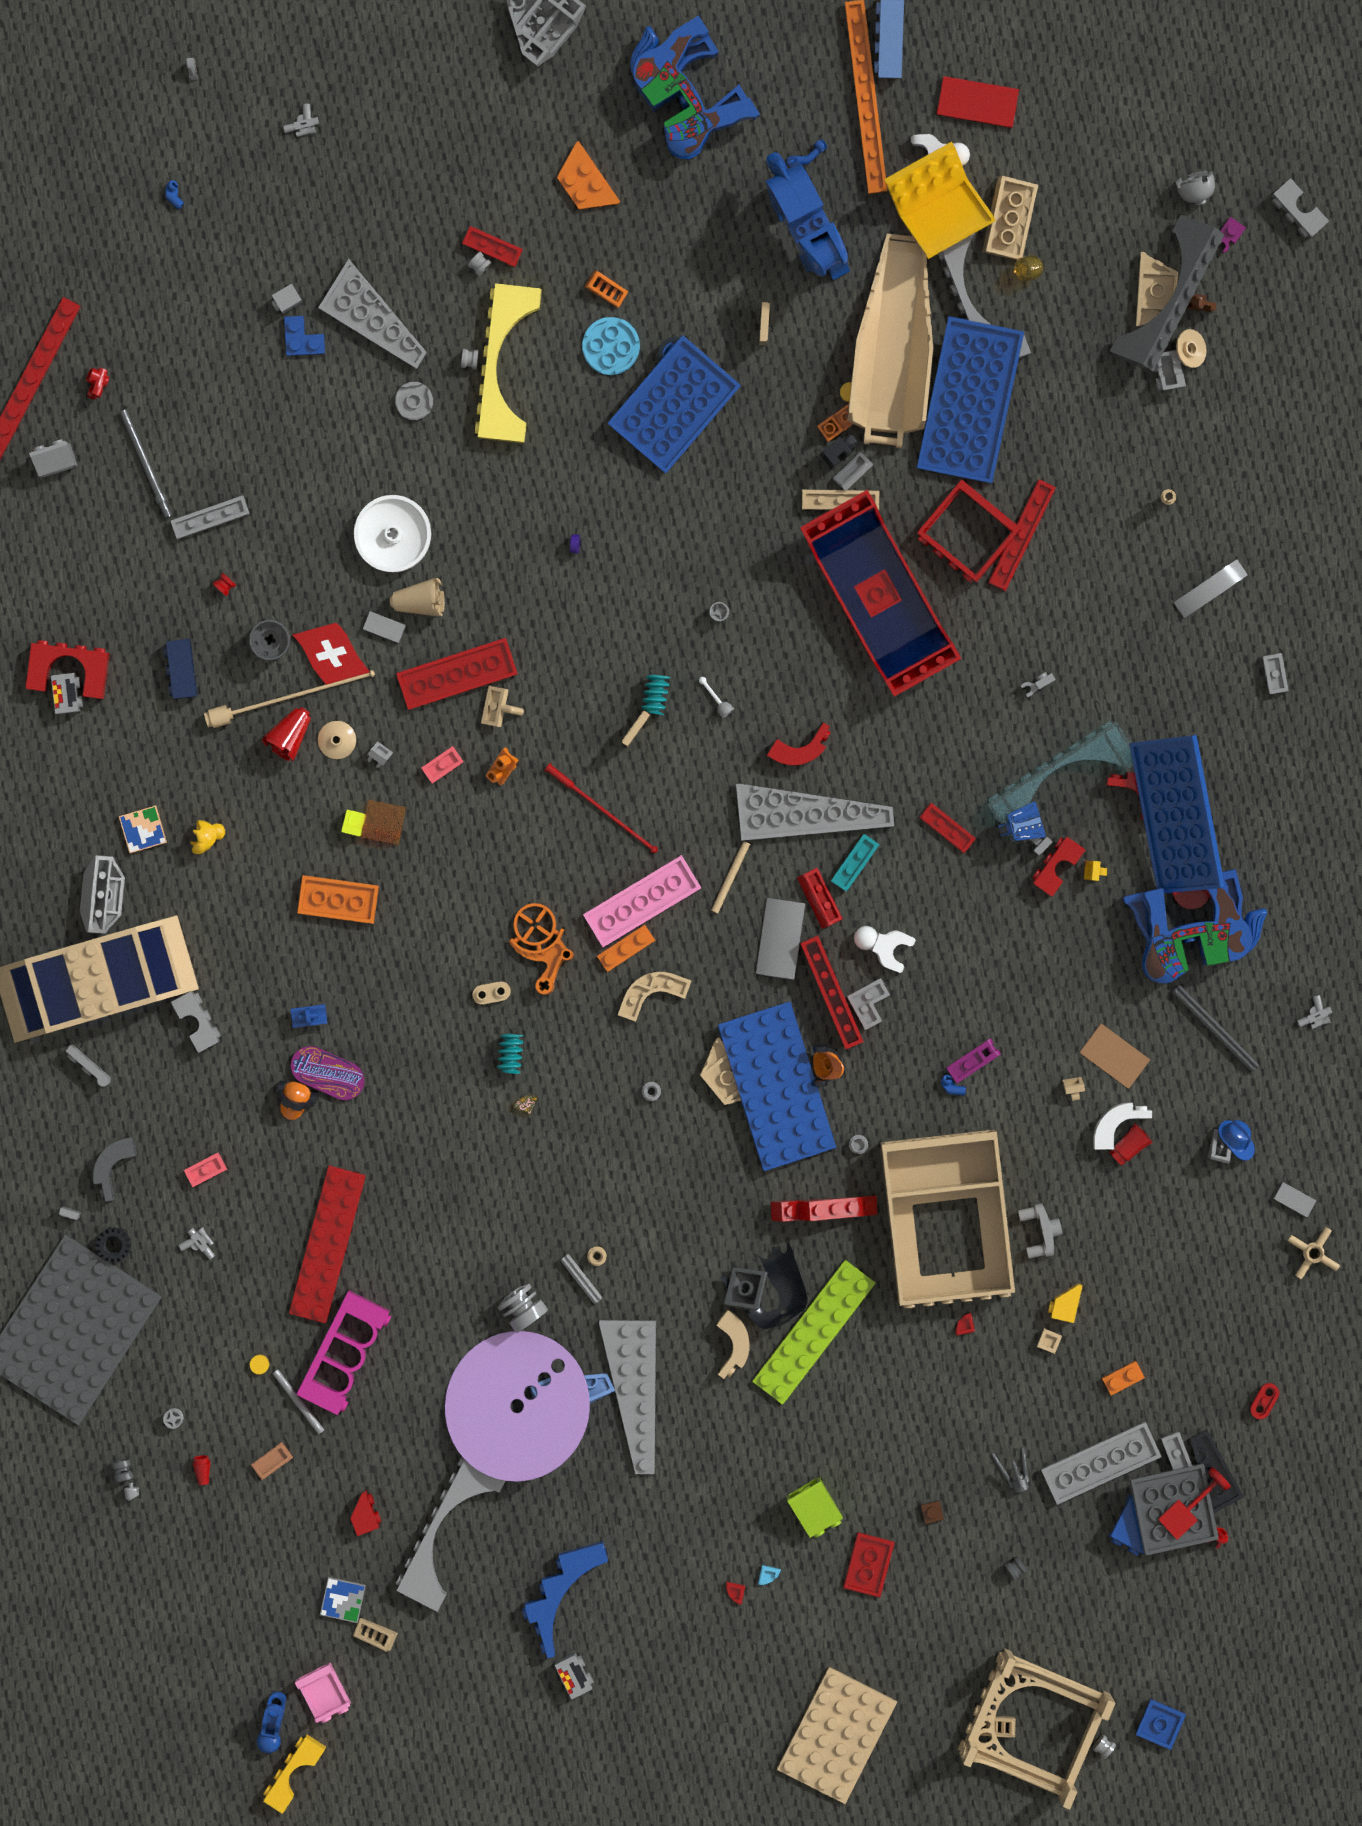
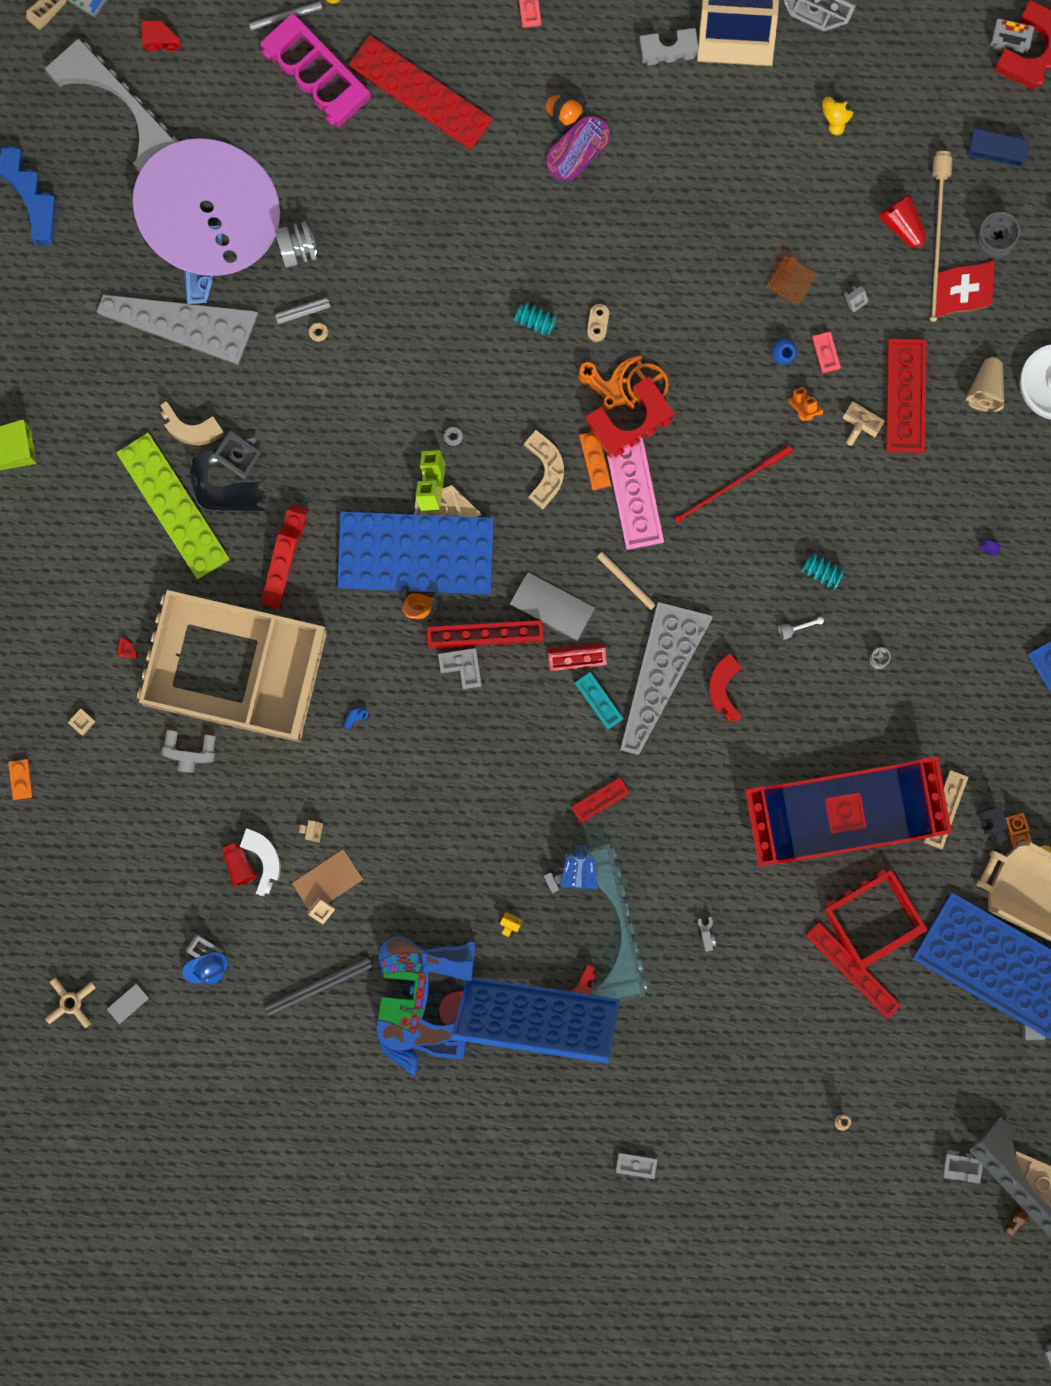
camera: 105 degrees right, 5 degrees down
(142, 829) = (862, 62): tile -> none
(309, 1016) = (637, 148): blue hips -> none
(338, 899) = (734, 214): orange plate -> none
(341, 749) = (879, 274): tan dish -> none
(353, 823) = (801, 251): neon yellow panel -> none
(384, 627) = (972, 345): light grey tile -> none
(456, 805) = (784, 351): none -> blue piece
(526, 1103) = (483, 318): clear yellow tile -> none
(602, 934) = (616, 440): none -> red arch
(635, 728) = (797, 540): tan tile -> none
(714, 1093) = (430, 489): none -> lime arch
(852, 471) = (969, 830): light grey tile -> none
(858, 1144) = (333, 610): light grey plate -> none
(883, 945) = (523, 686): white piece -> none
(972, 1061) = (371, 744): magenta plate -> none
(1046, 878) = (519, 876): red arch -> none
(1065, 1304) = (110, 749): yellow slope -> none
(1145, 1052) = (320, 910): none -> tan plate
(1191, 348) = (976, 1196): tan dish -> none
(1210, 588) = (739, 1132): light grey slope -> none
(1317, 1014) = (295, 1089): light grey piece -> none

